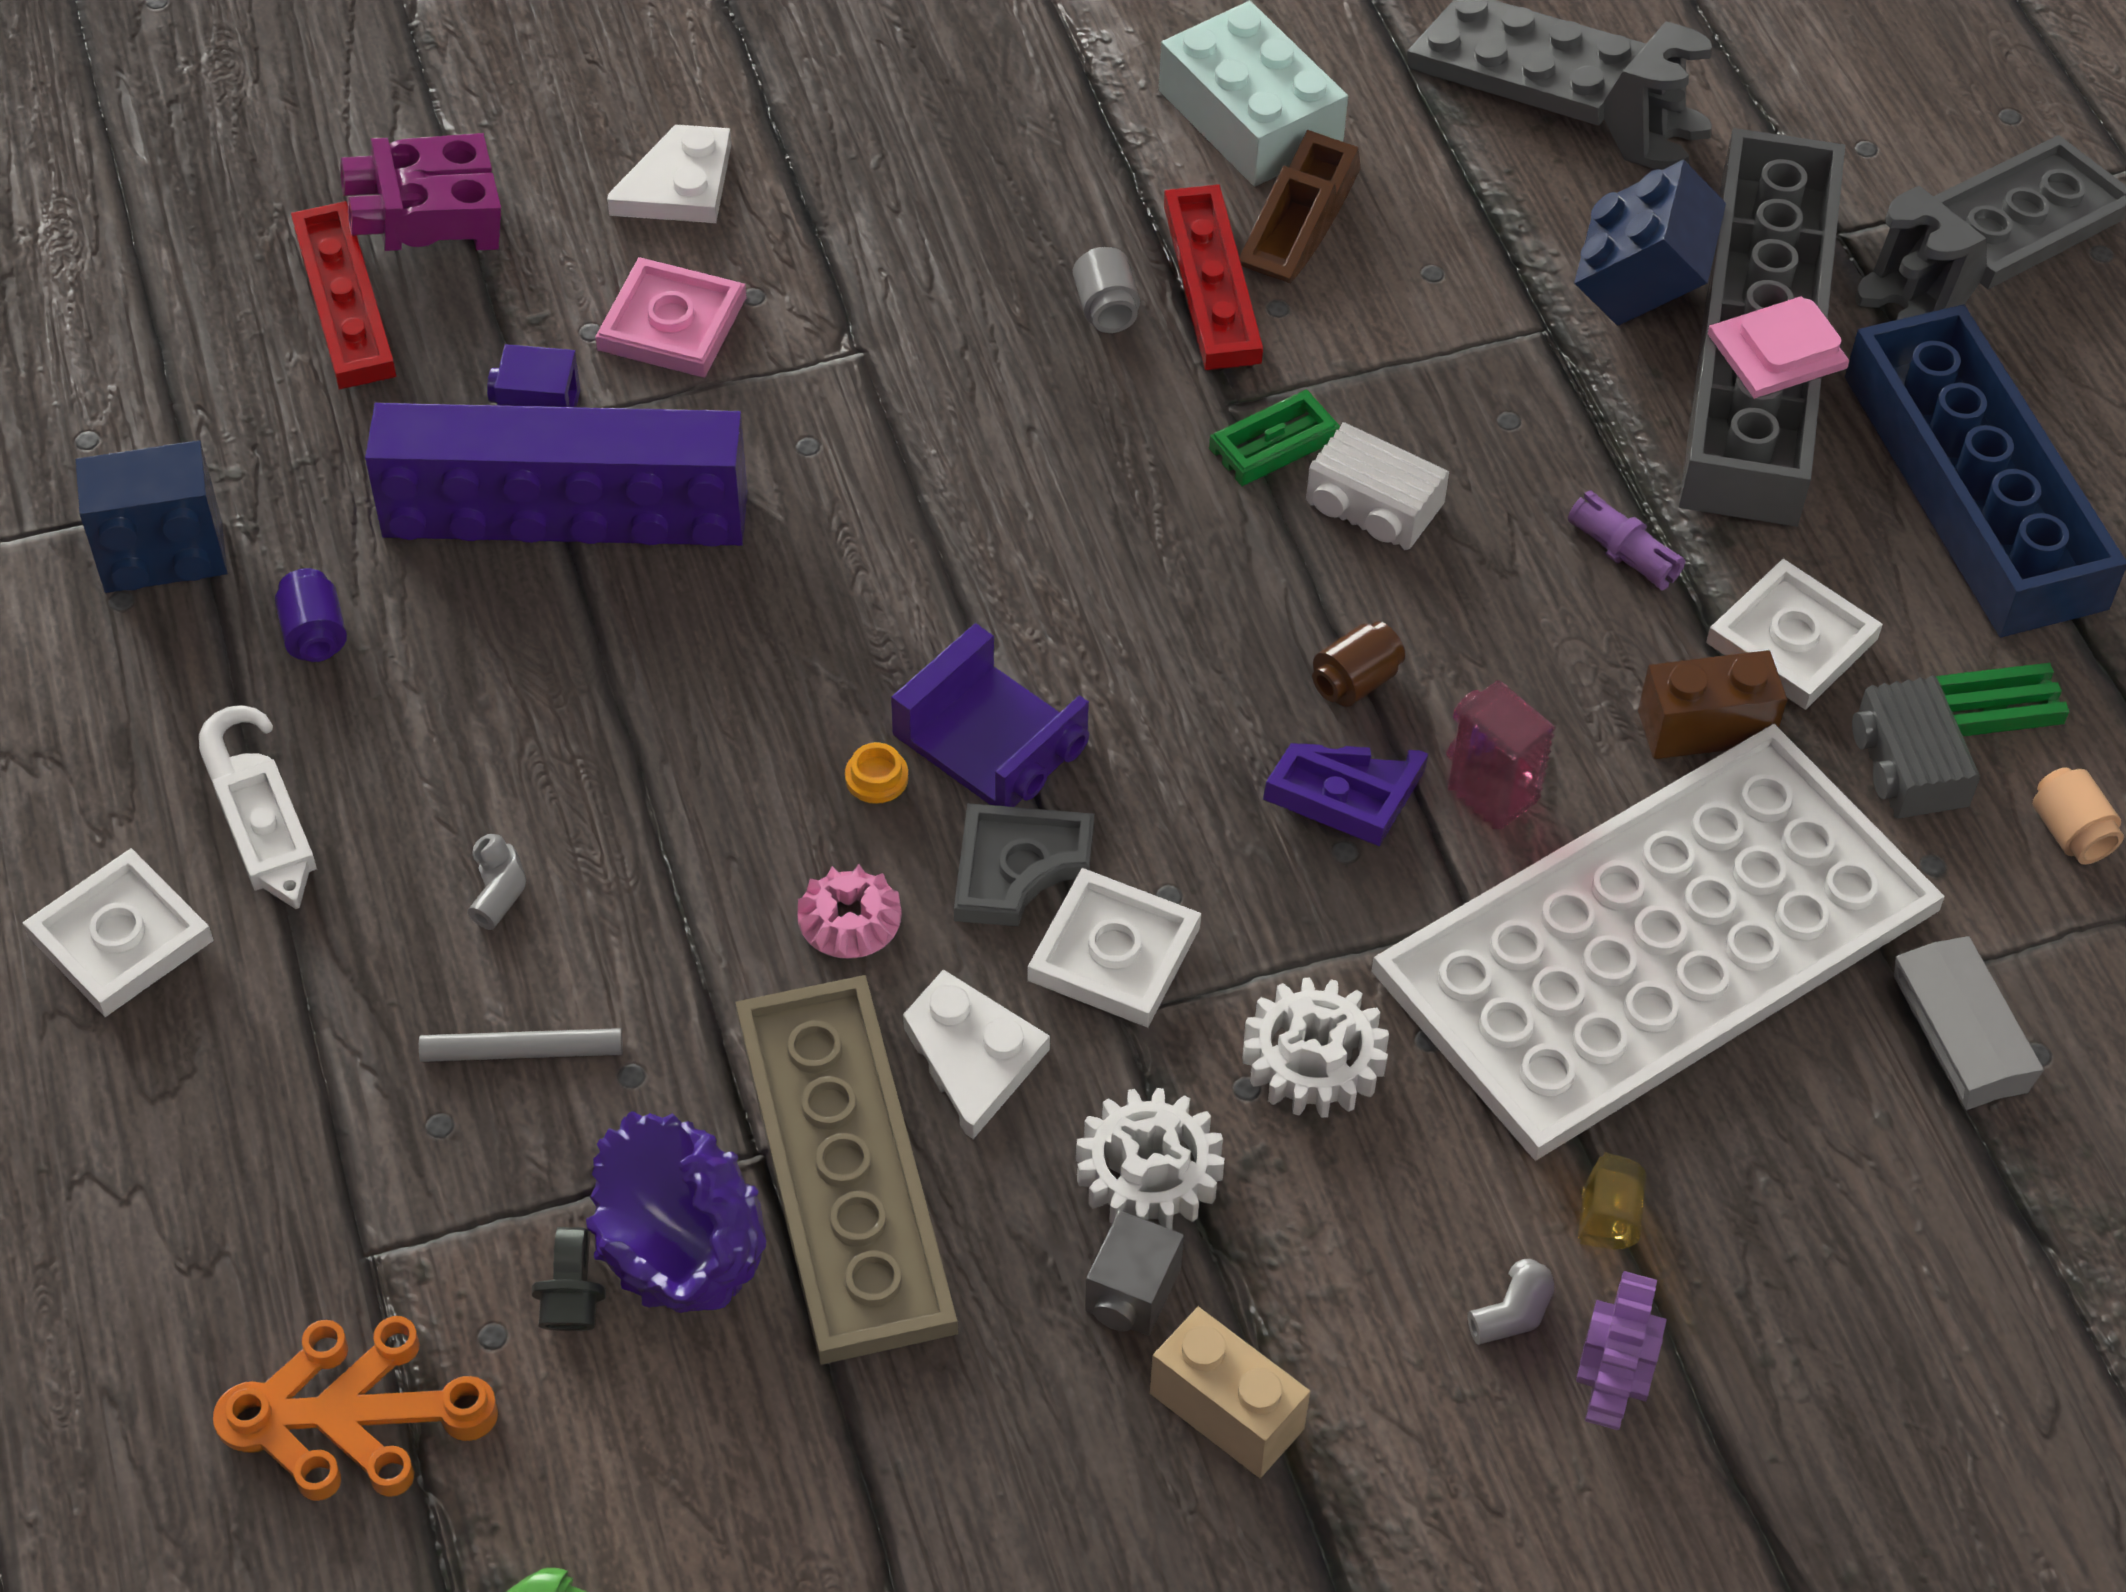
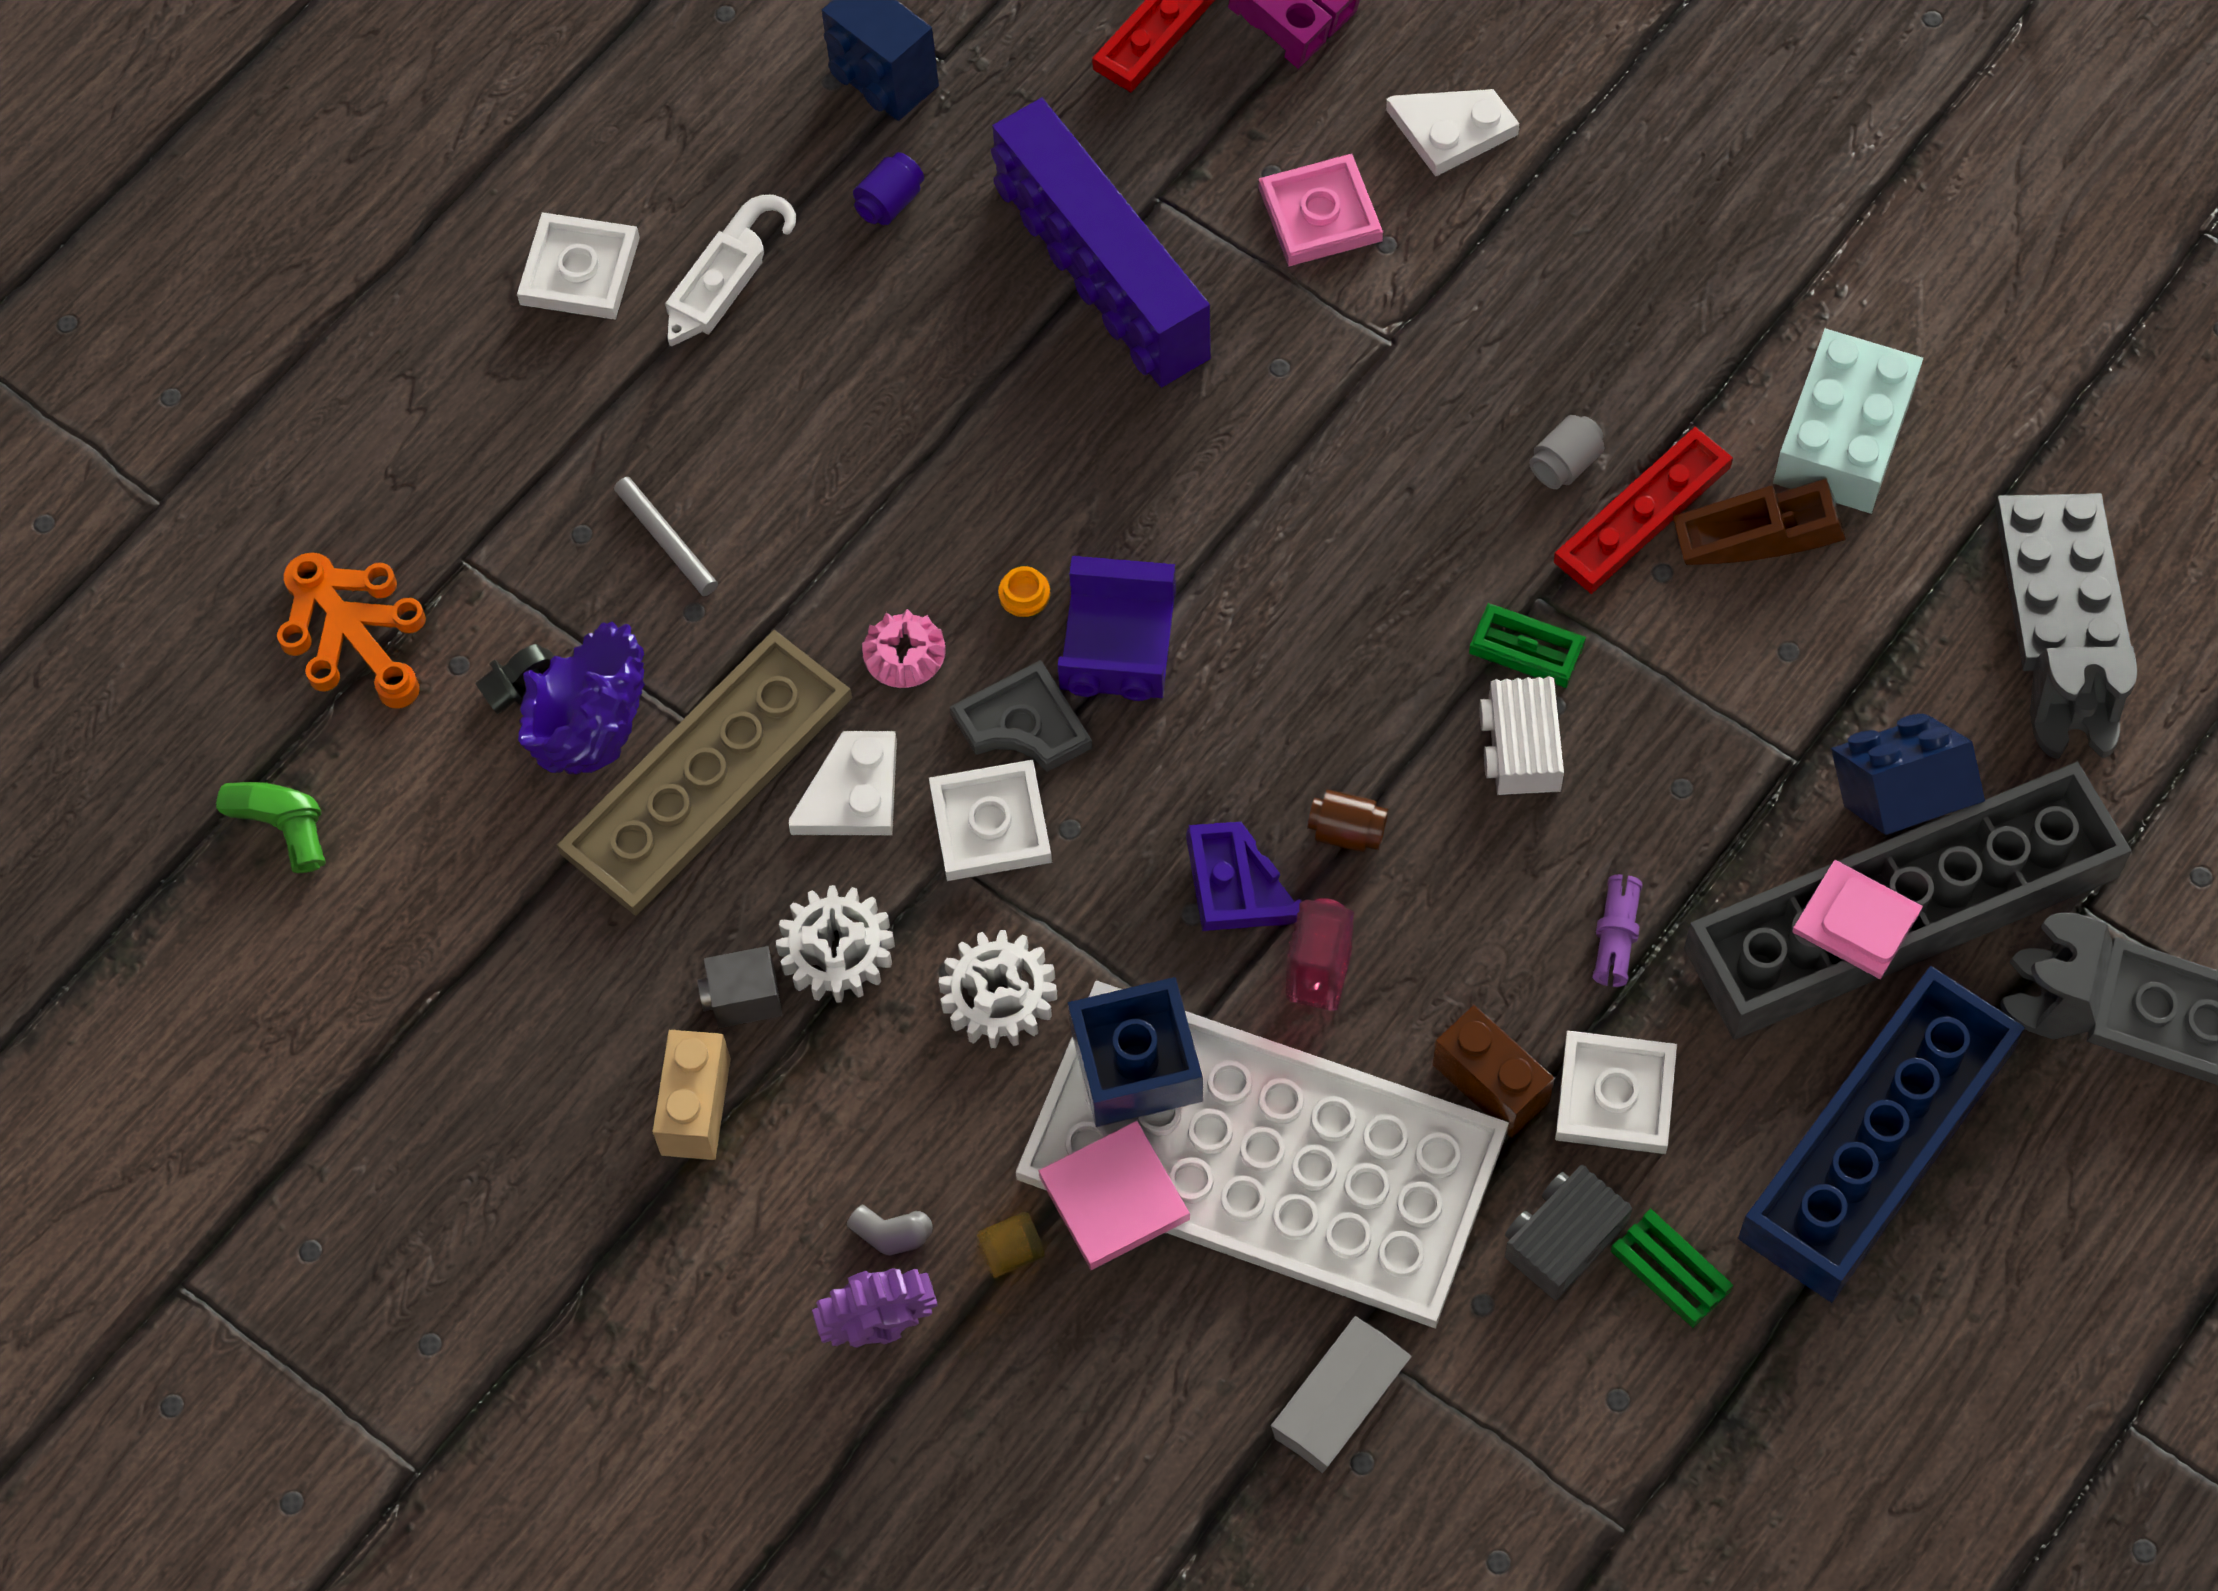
camera: 60 degrees right, 10 degrees up
(502, 879) = (778, 439): light grey arm -> none
(535, 377) = (1179, 177): dark purple brick -> none
(1504, 950) = (1135, 1051): none -> dark blue brick
(1633, 1072) = (1114, 1195): none -> bright pink tile
(2078, 815) = (1592, 1377): light nougat brick -> none

